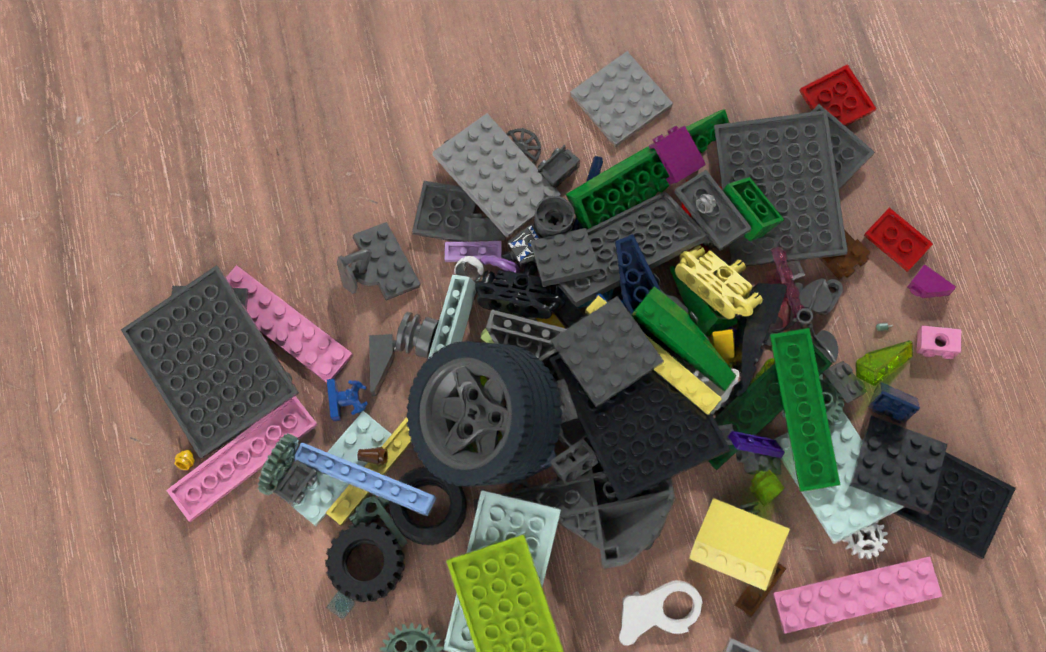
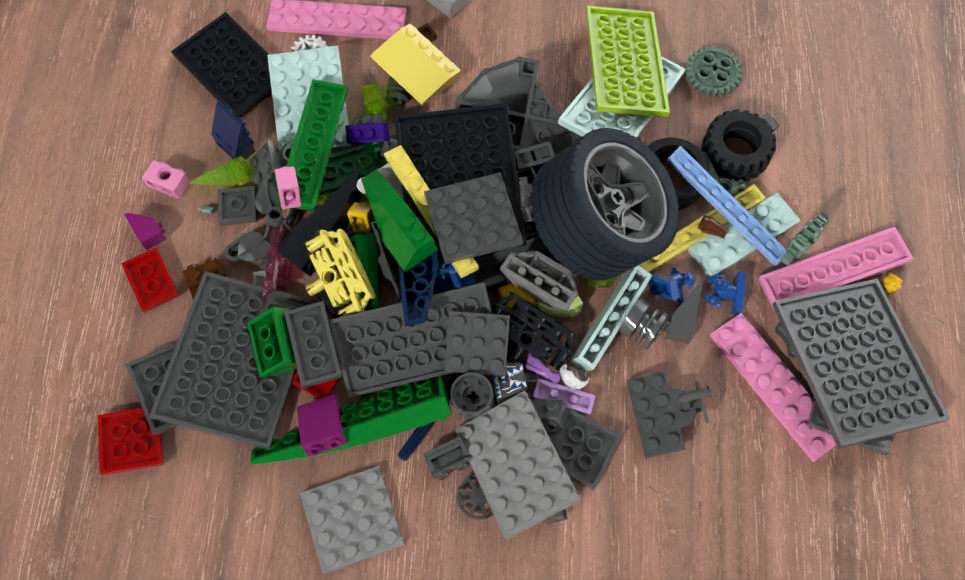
camera: 165 degrees left, 5 degrees down
(295, 483) = (788, 223): dark grey bracket -> none
(399, 386) = (671, 285): none -> blue piece
(646, 610) = (509, 47): white animal -> none
(706, 203) = (317, 344): light grey plate -> none
(800, 332) = (287, 187): none -> bright pink brick
(854, 337) = (237, 205): none -> dark grey plate
(899, 465) = (256, 85): black plate -> none

